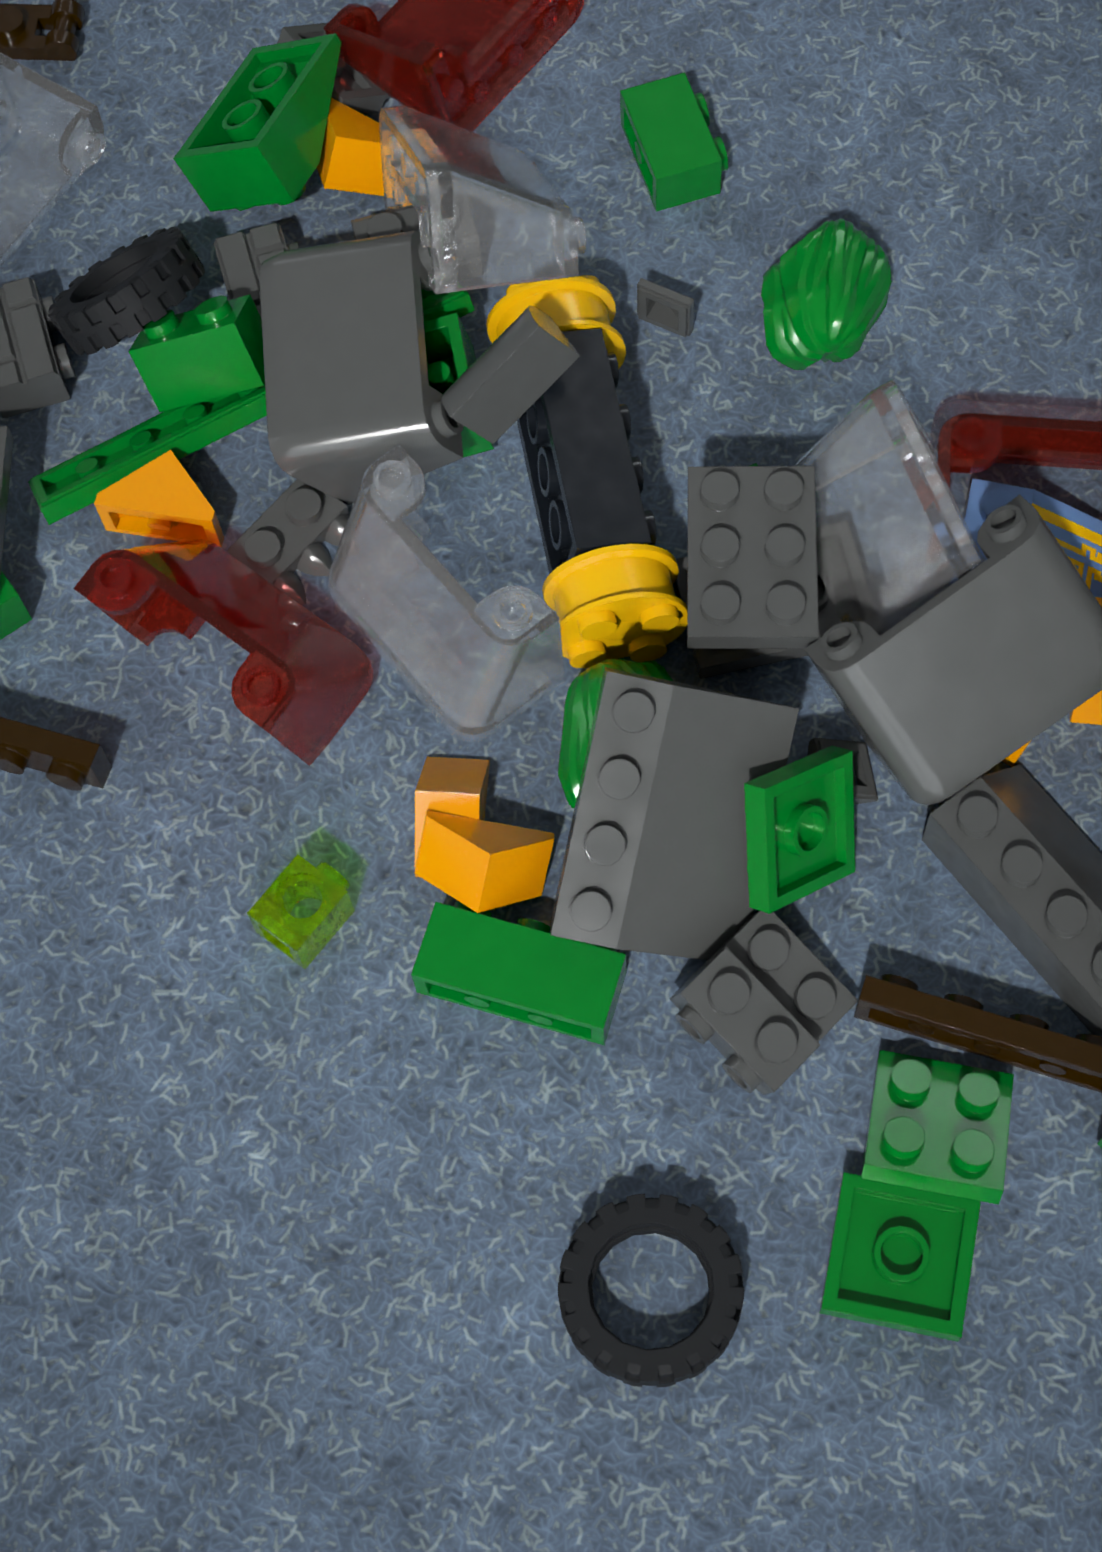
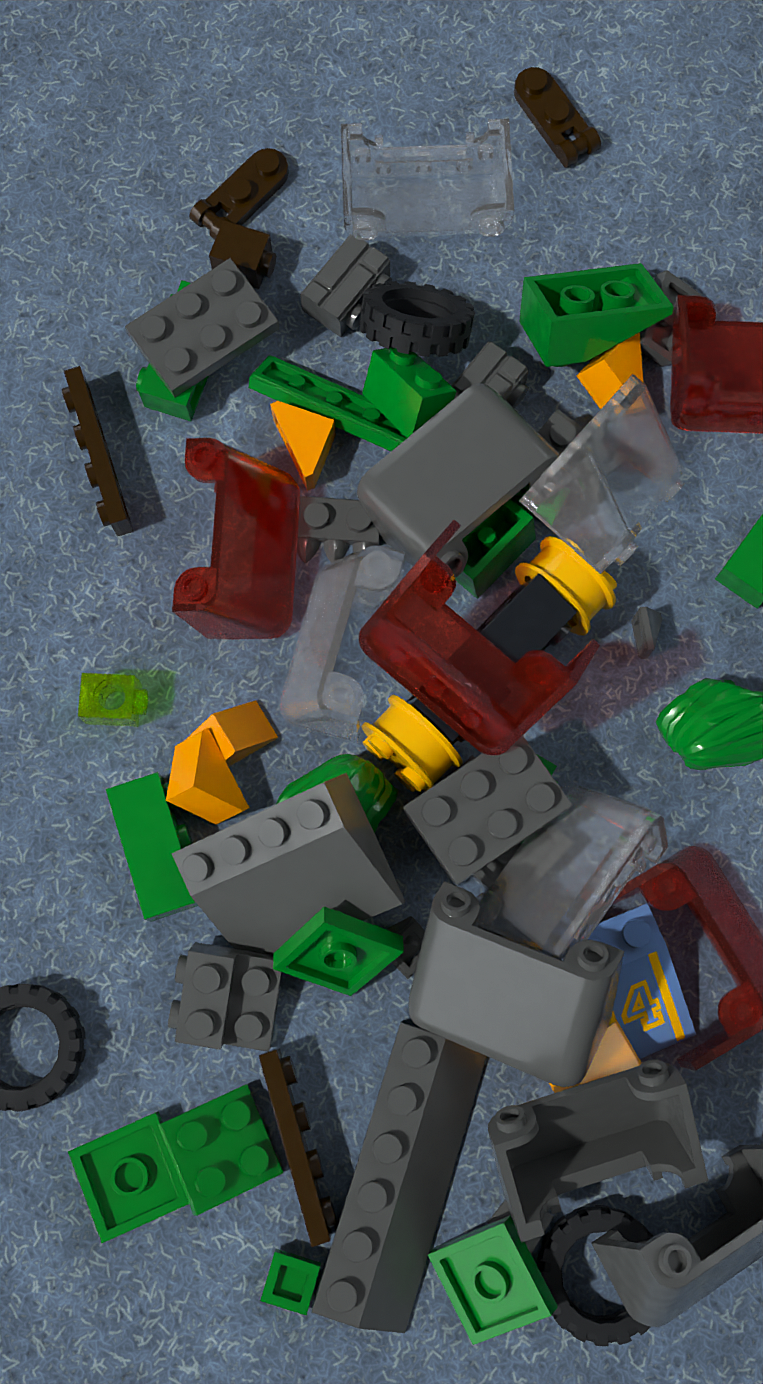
camera: 50 degrees right, 10 degrees up
(510, 375) = (500, 583): dark grey brick -> none
(577, 477) = (456, 667): none -> clear red windscreen

